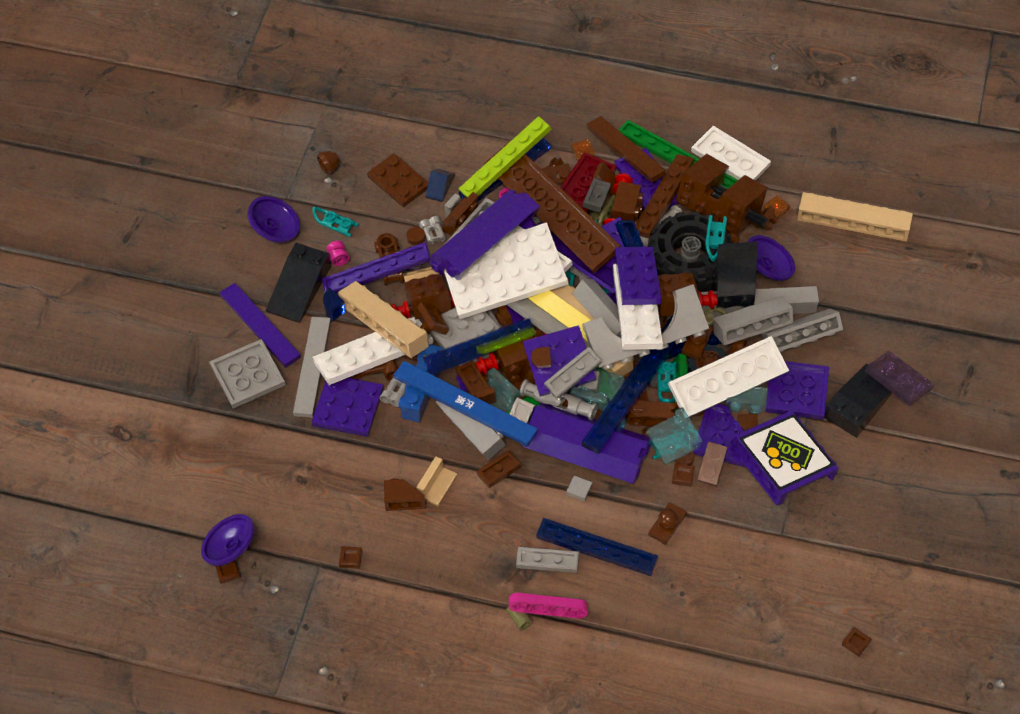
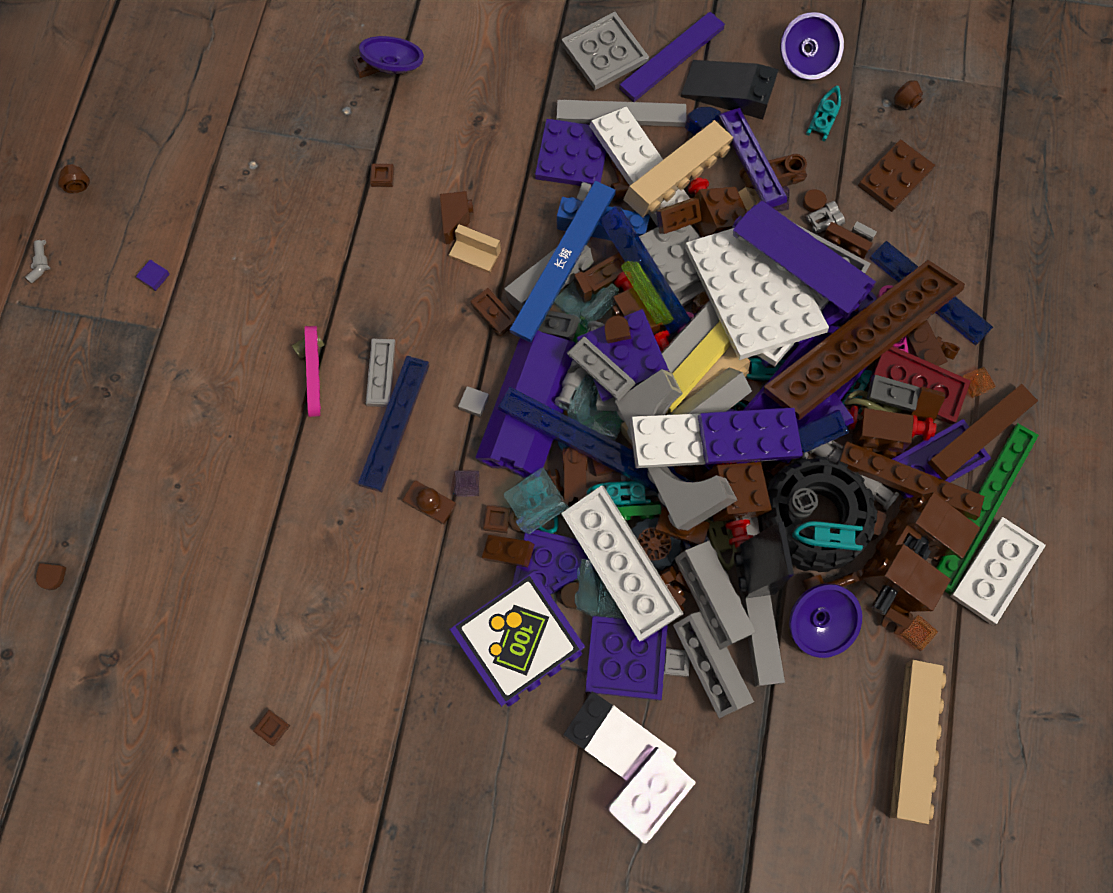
camera: 85 degrees right, 15 degrees up
(337, 252) = (778, 119): dark pink wheel -> none
(439, 184) = (897, 218): dark blue slope -> none
(506, 157) = (935, 280): lime plate -> none
(652, 494) = (467, 483): none -> clear purple tile
(799, 356) = (676, 663): none -> light grey tile

